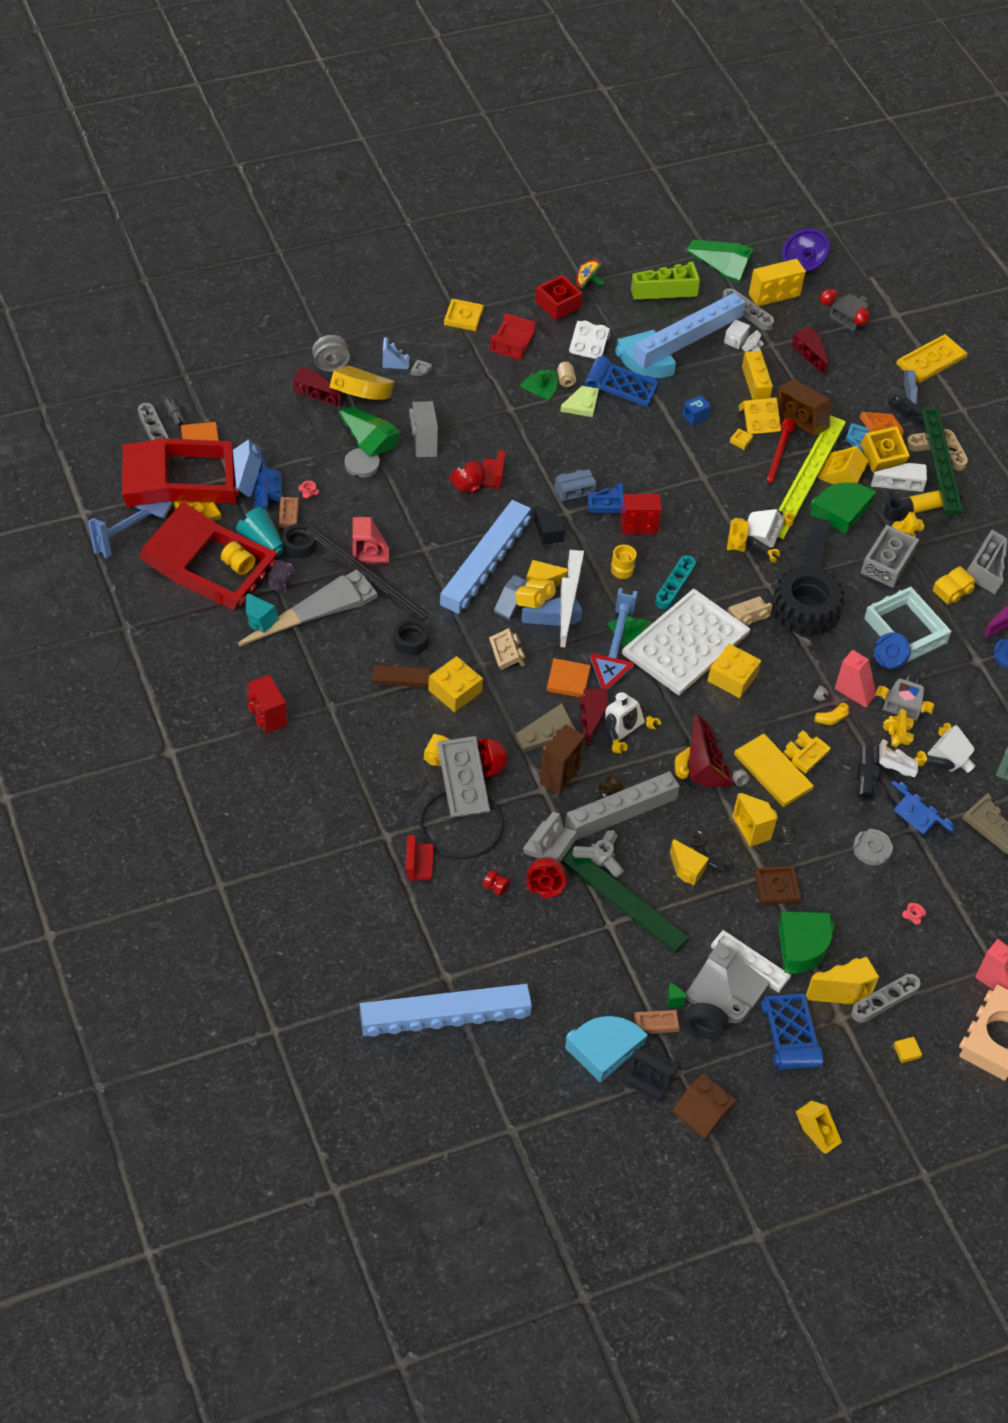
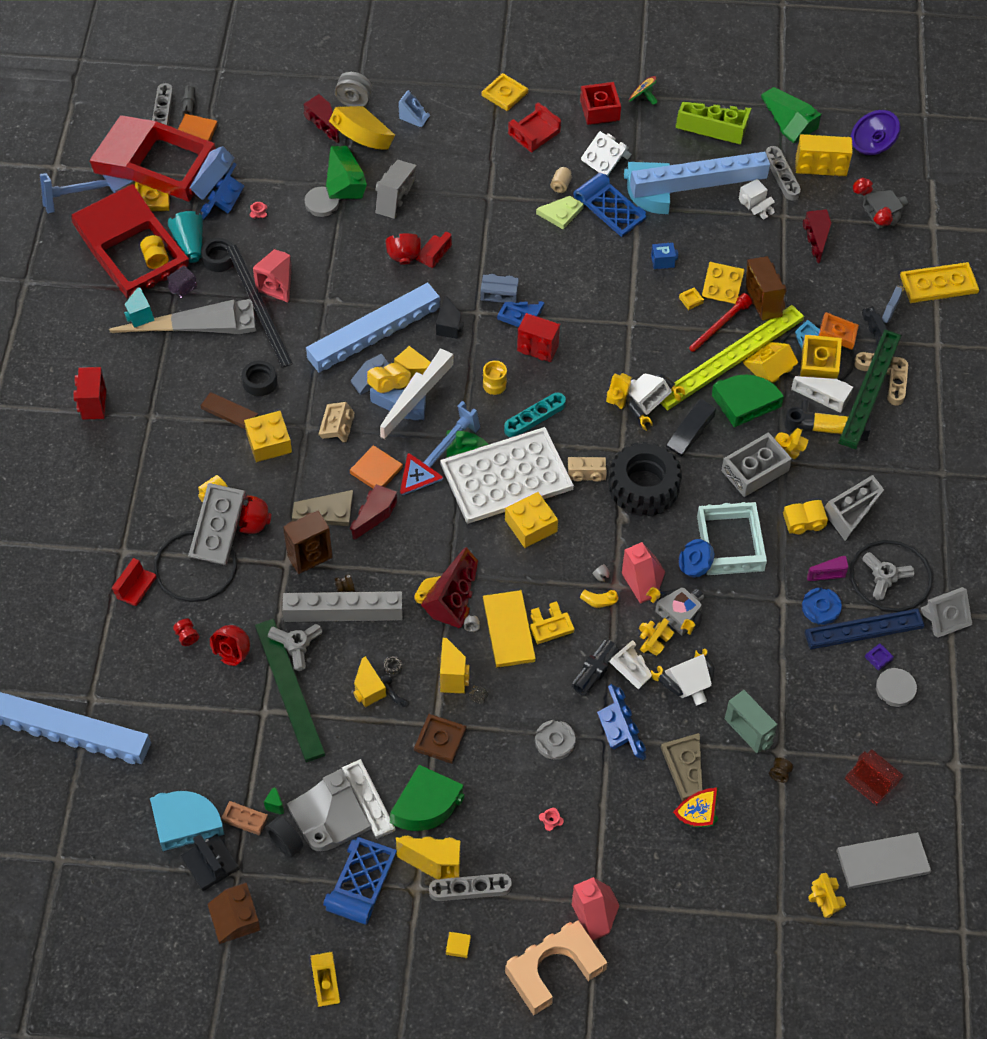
camera: 30 degrees right, 5 degrees up
(288, 511) = (226, 225): nougat plate -> none
(421, 368) = (432, 130): light grey tile -> none
(542, 384) = (535, 181): green shield -> none
(551, 839) = (257, 612): light grey bracket -> none
(623, 718) = (395, 525): torso -> none
(757, 375) = (744, 241): yellow brick -> none

